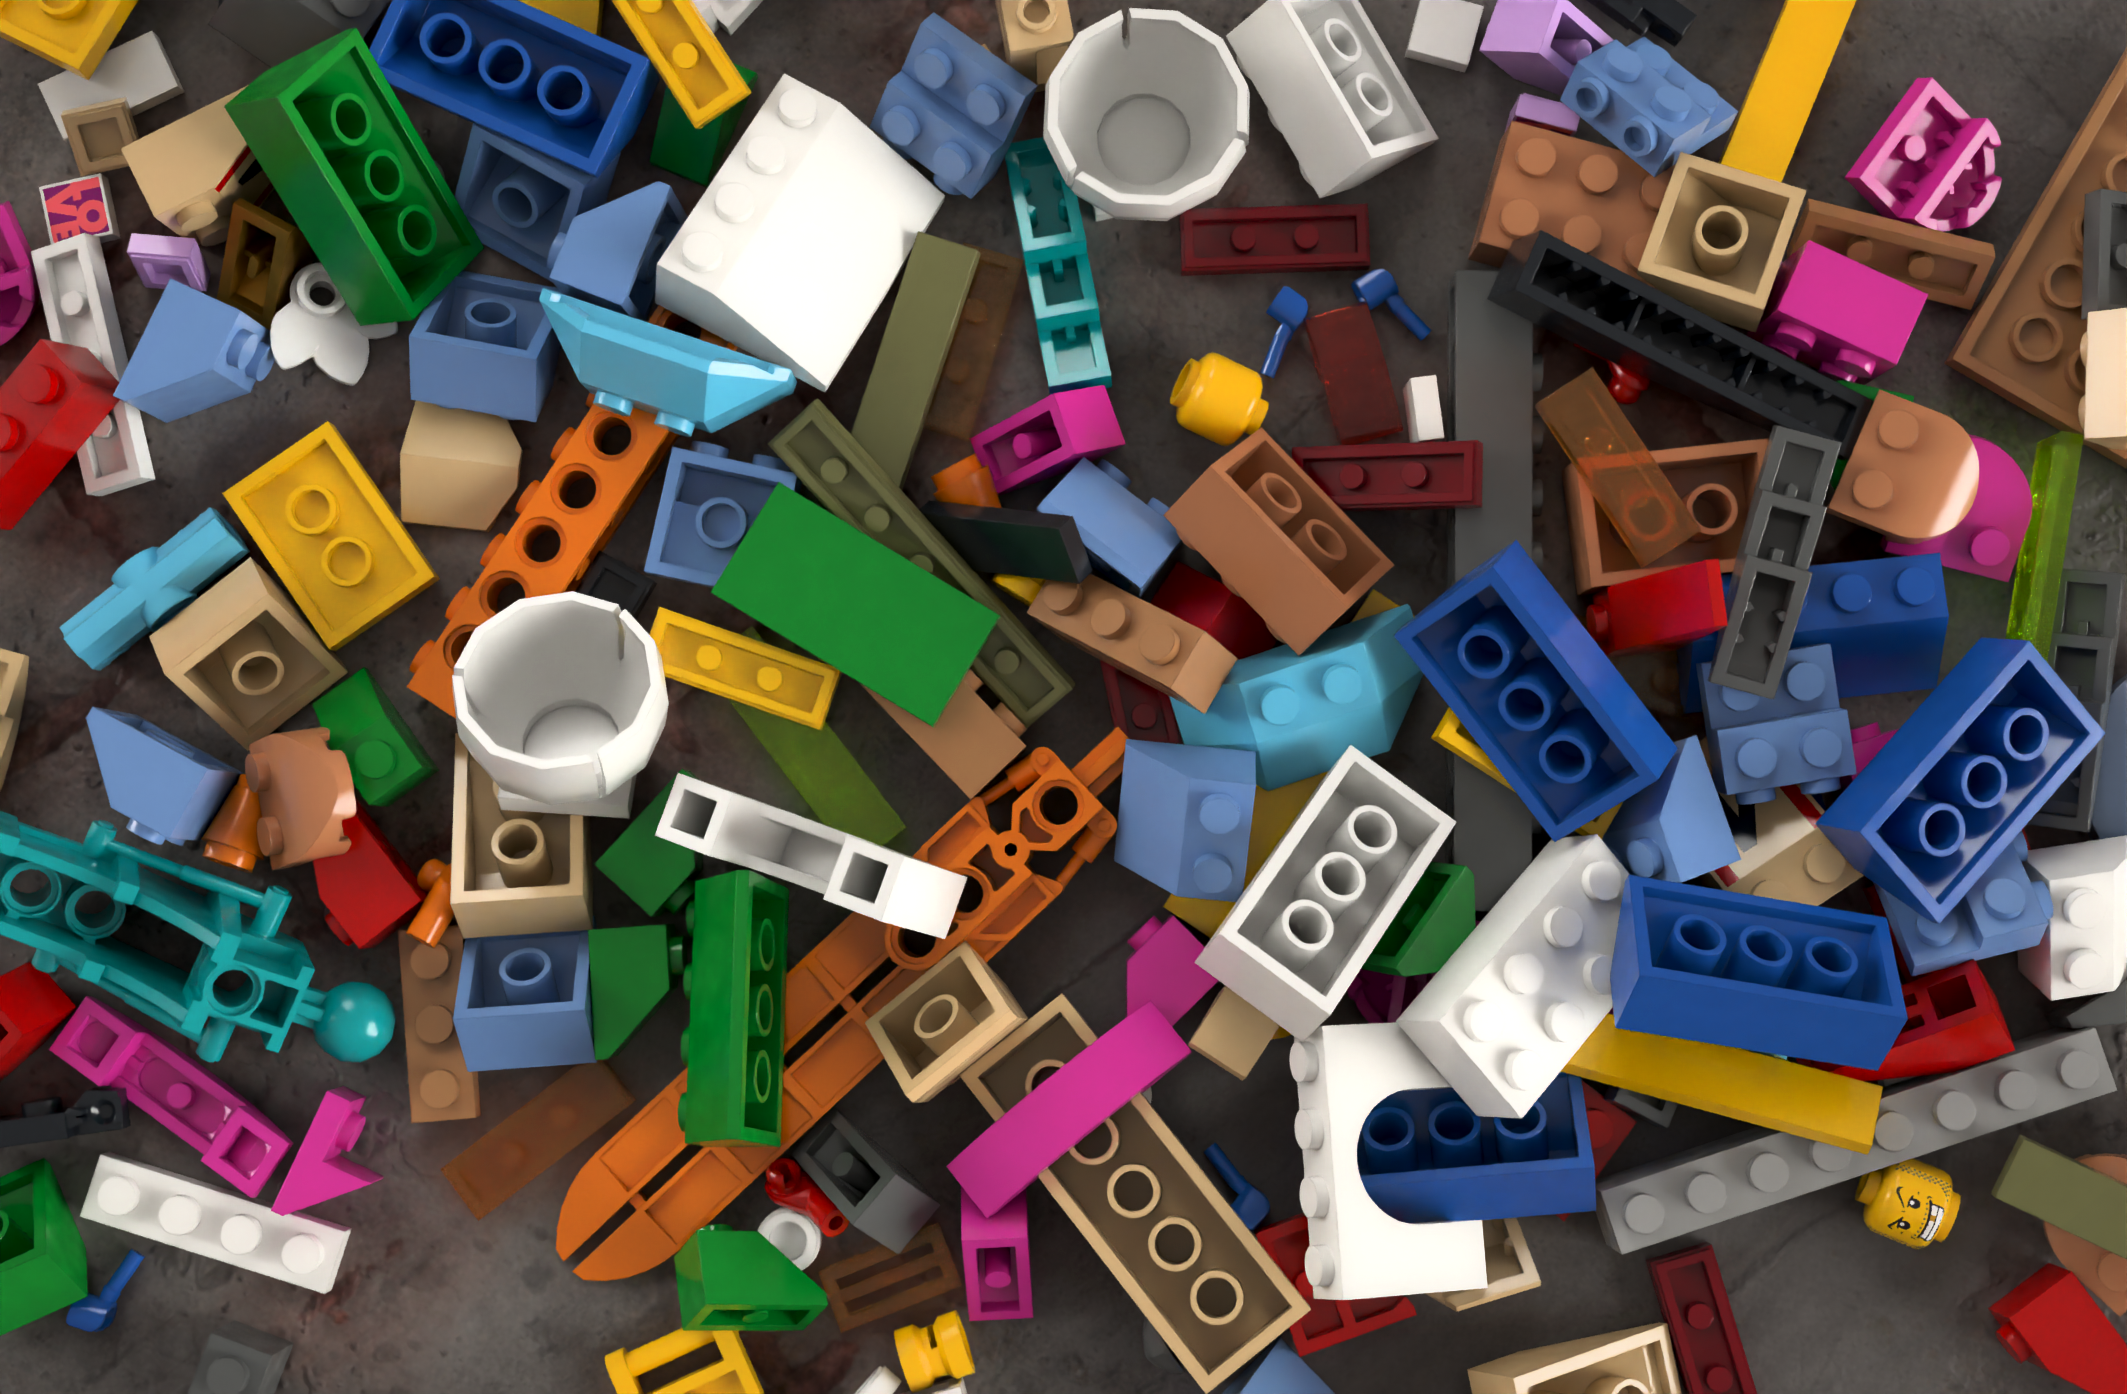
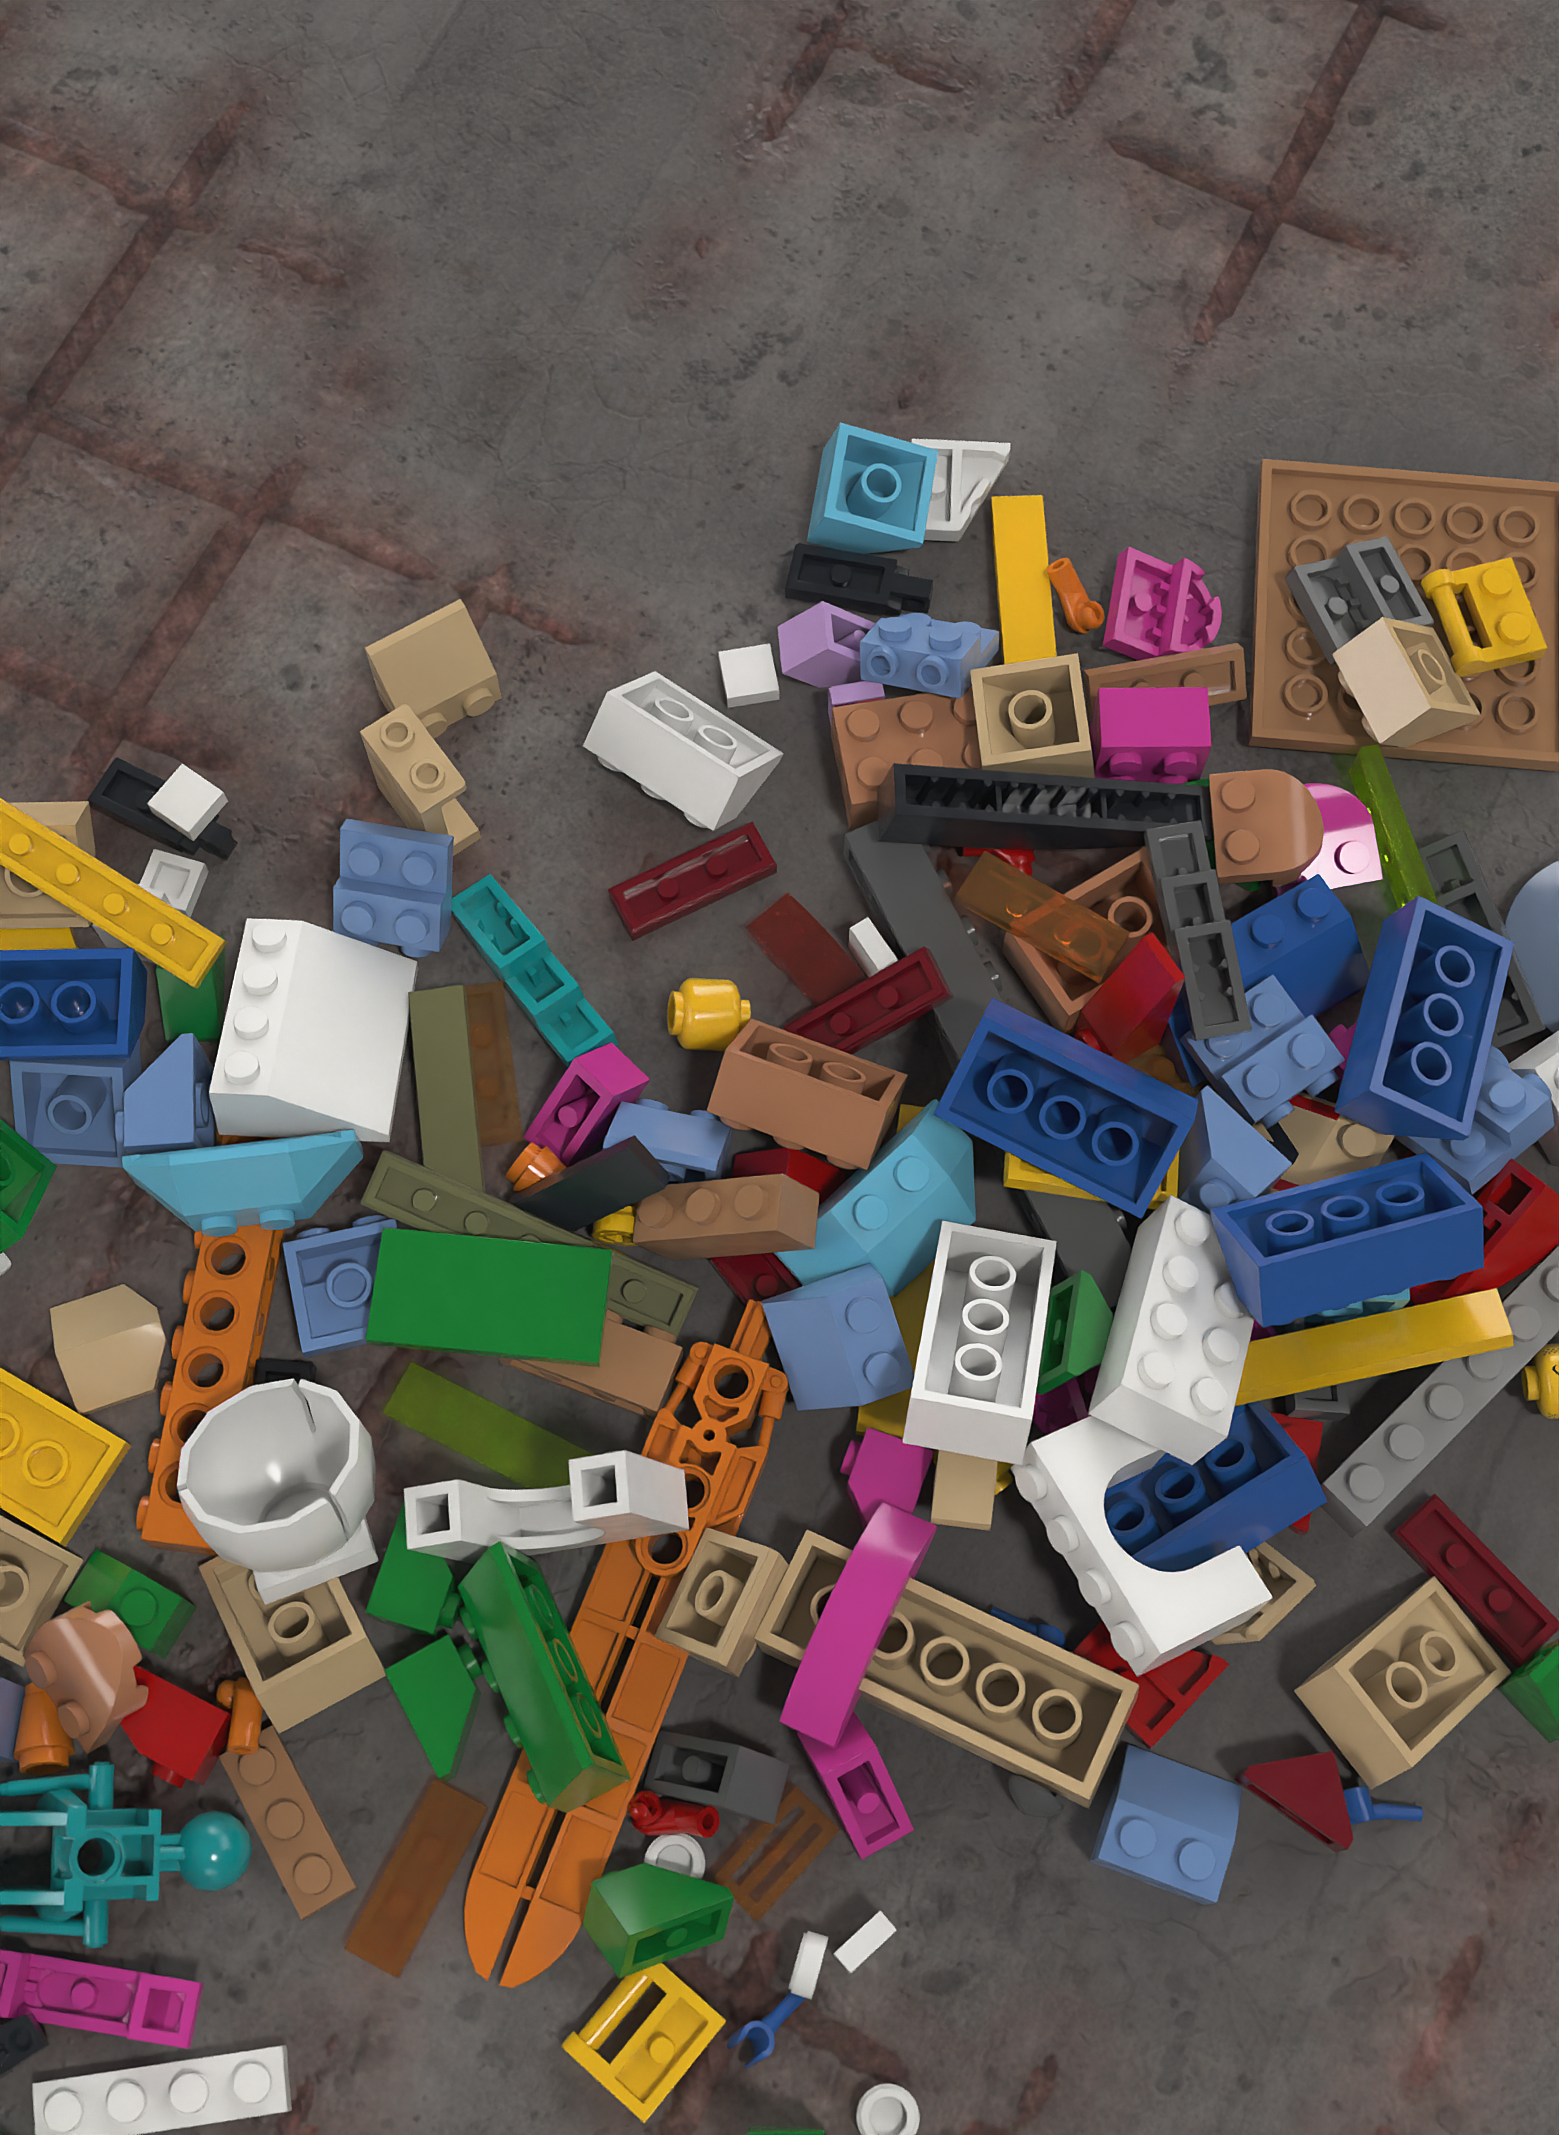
camera: 25 degrees left, 15 degrees down
(318, 1167) = (235, 2003): dark pink slope -> none
(485, 348) = (93, 1240): medium blue slope -> none
(525, 1001) = (358, 1761): medium blue slope -> none
(744, 669) = (426, 1396): yellow tile -> none
(934, 1351) = (844, 1896): yellow wheel -> none
(1146, 117) = (554, 824): white plate -> none
(1289, 310) = (731, 925): blue hand -> none
(1380, 287) = (793, 878): blue hand -> none
(1840, 119) = (1079, 611): none -> orange arm

